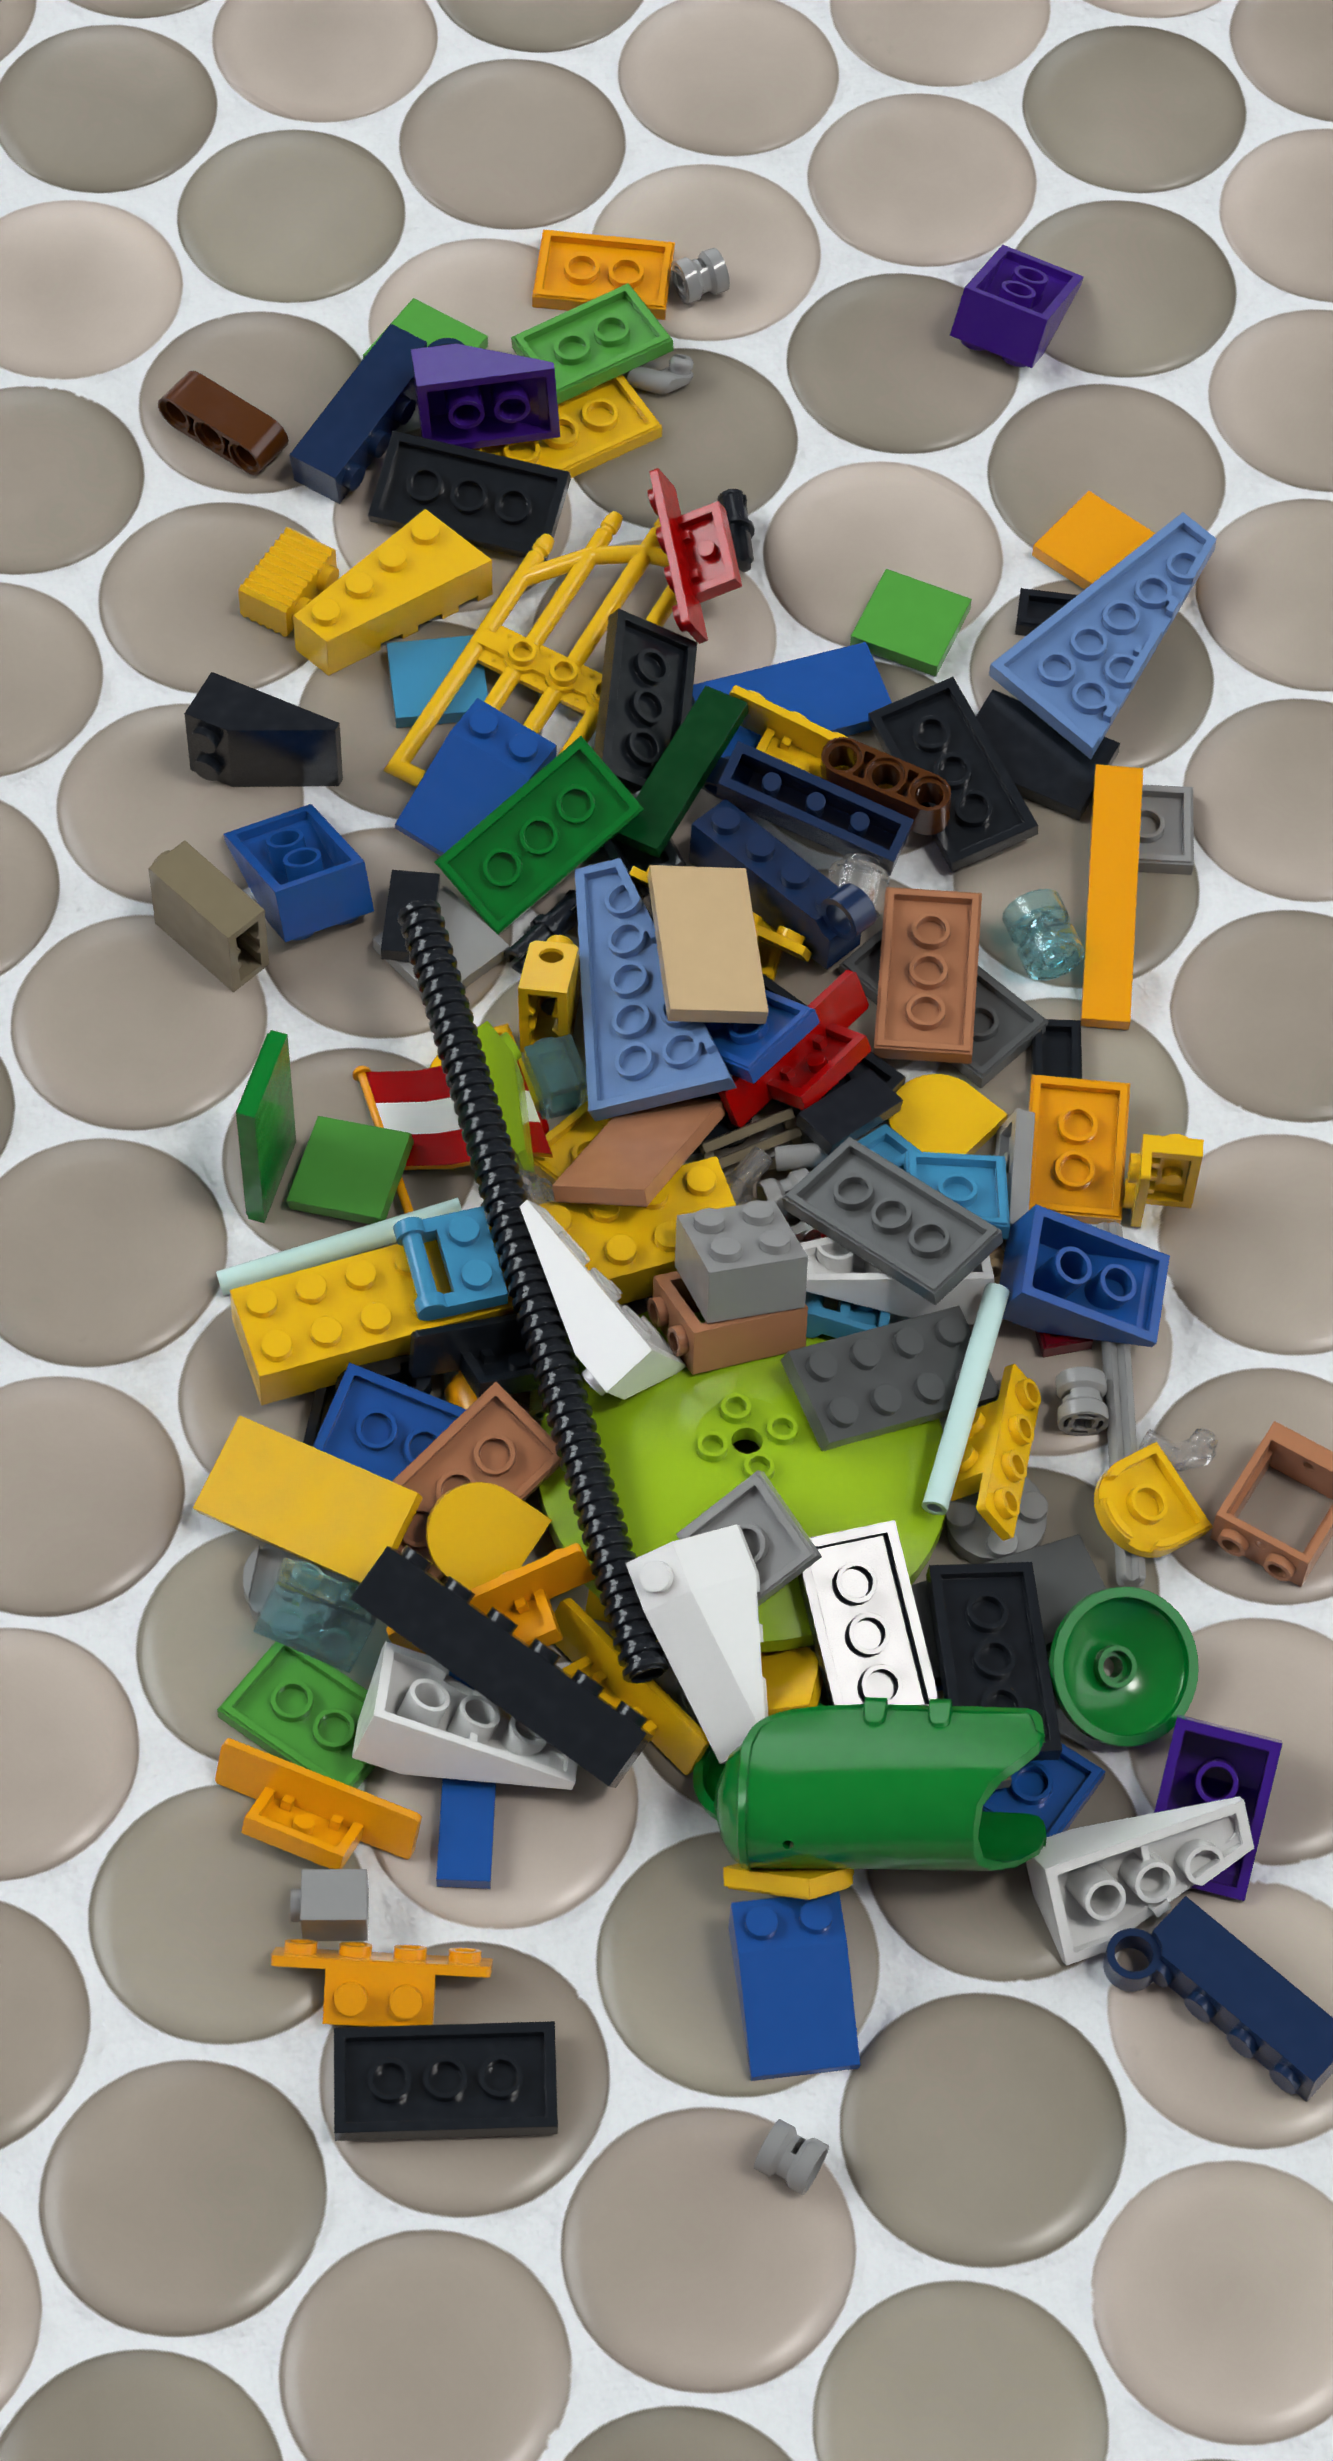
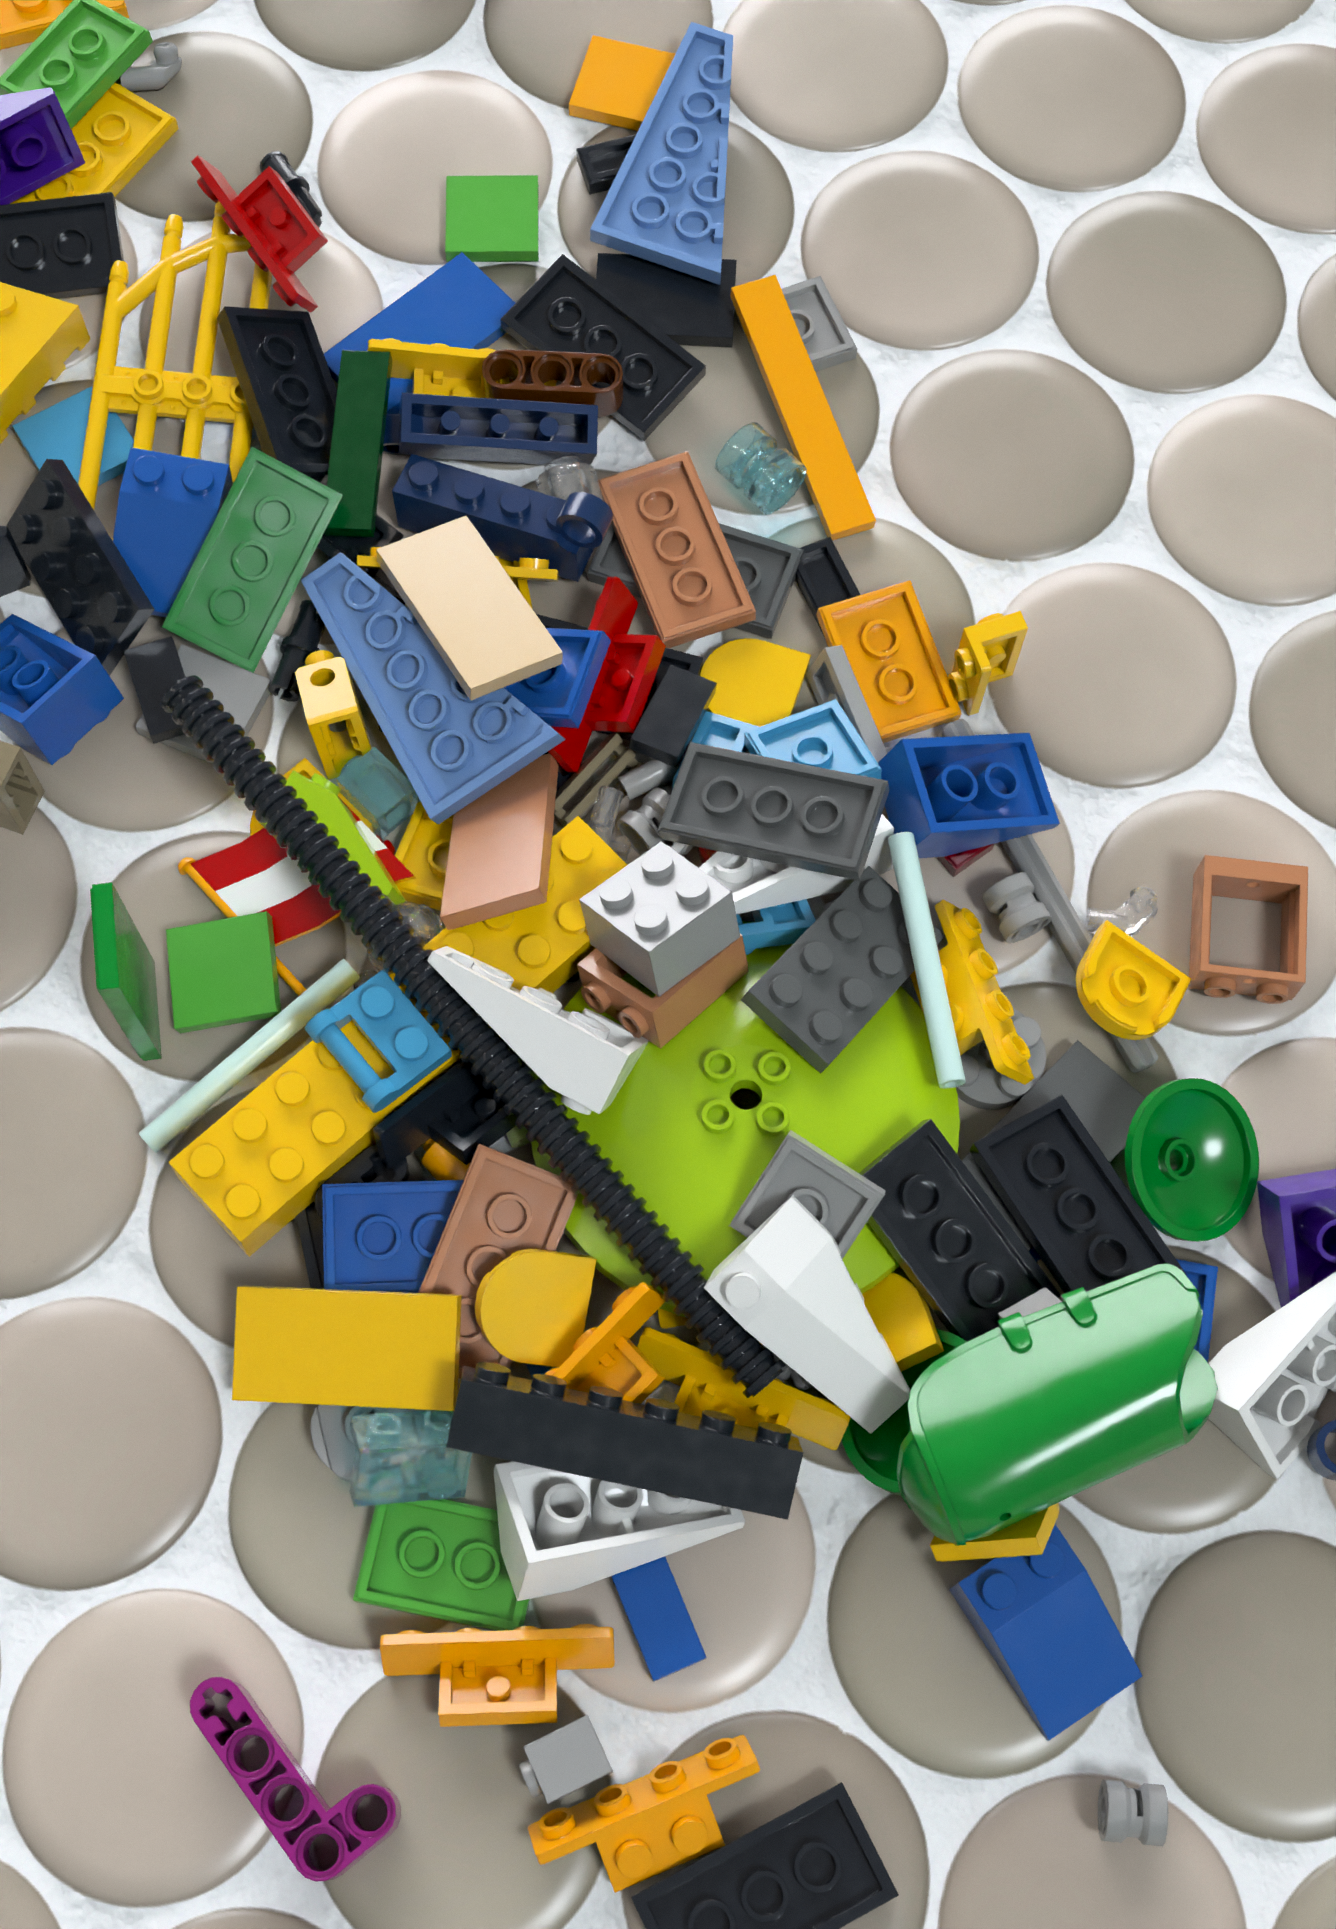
camera: 25 degrees left, 10 degrees up
(92, 1812) = (284, 1770): none -> magenta beam
(386, 783) = (78, 565): none -> black plate

